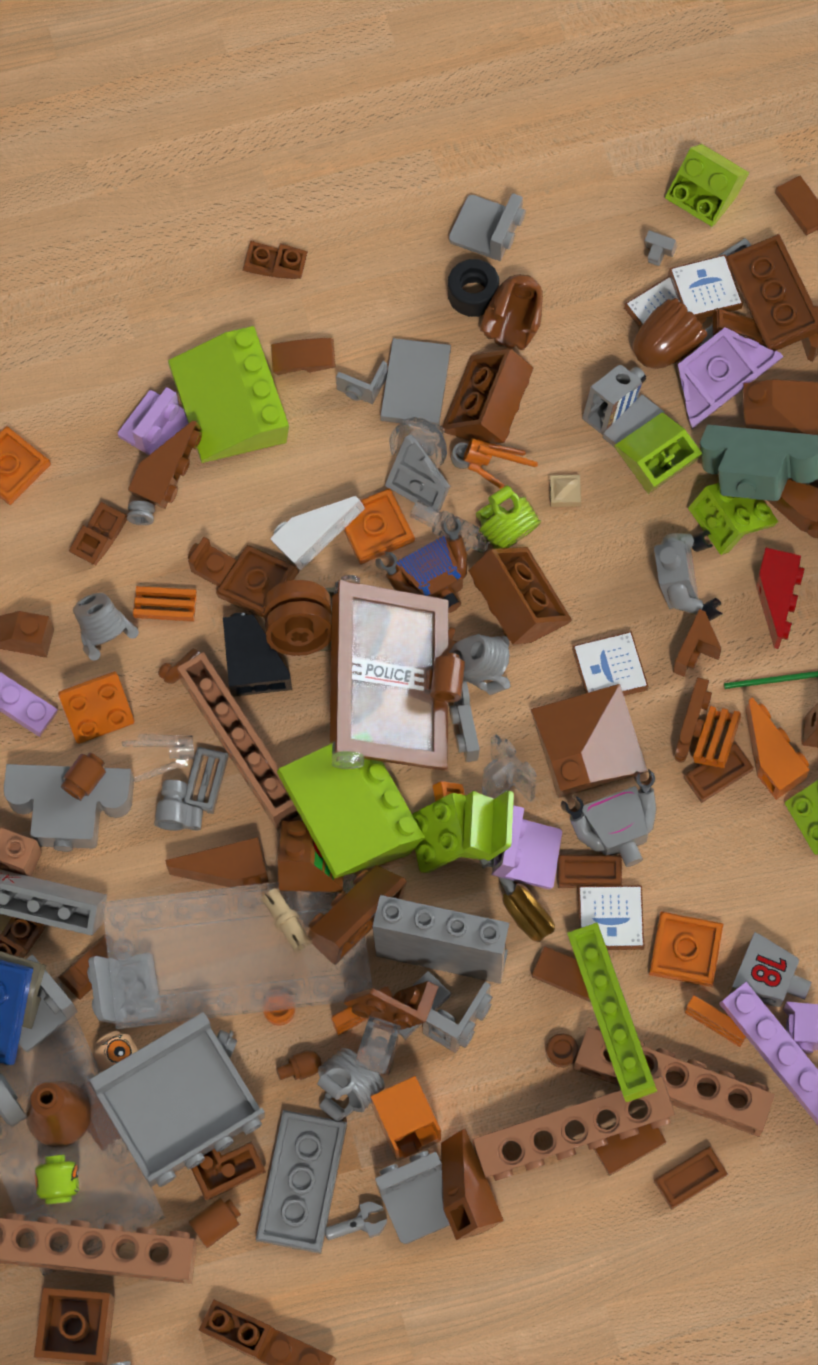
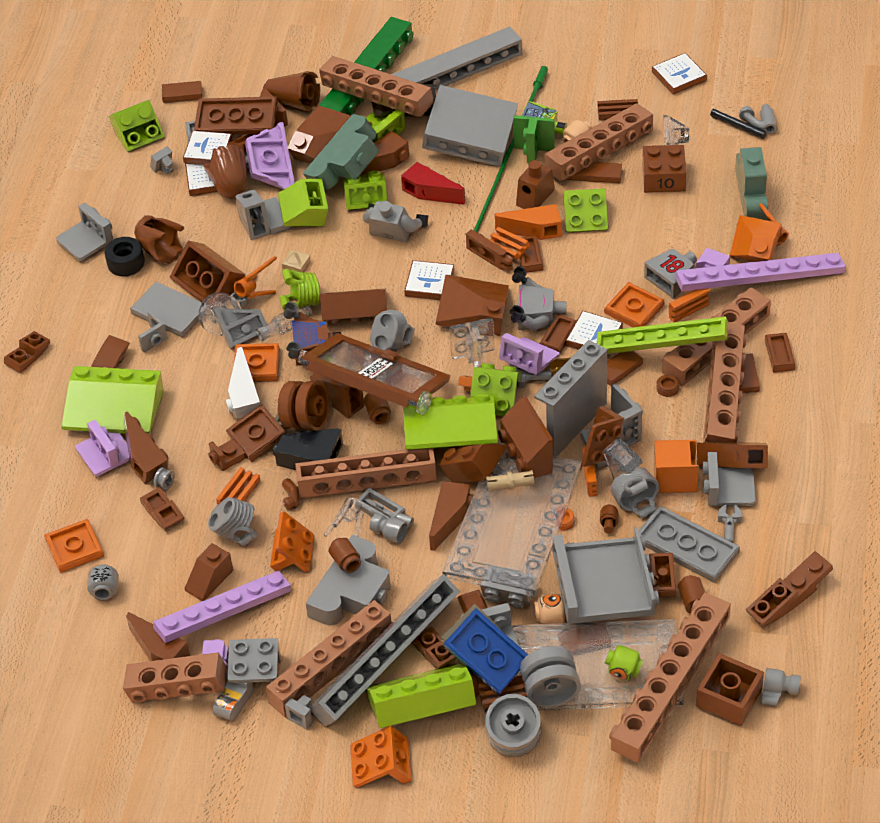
camera: 65 degrees left, 20 degrees down
(58, 1113) = (578, 638): dark orange cone -> none
(447, 678) = (395, 343): dark orange brick -> none
(462, 715) = (430, 357): light grey hinge -> none
(488, 824) = (507, 353): lime panel -> none
(699, 640) = (440, 231): dark orange slope -> none

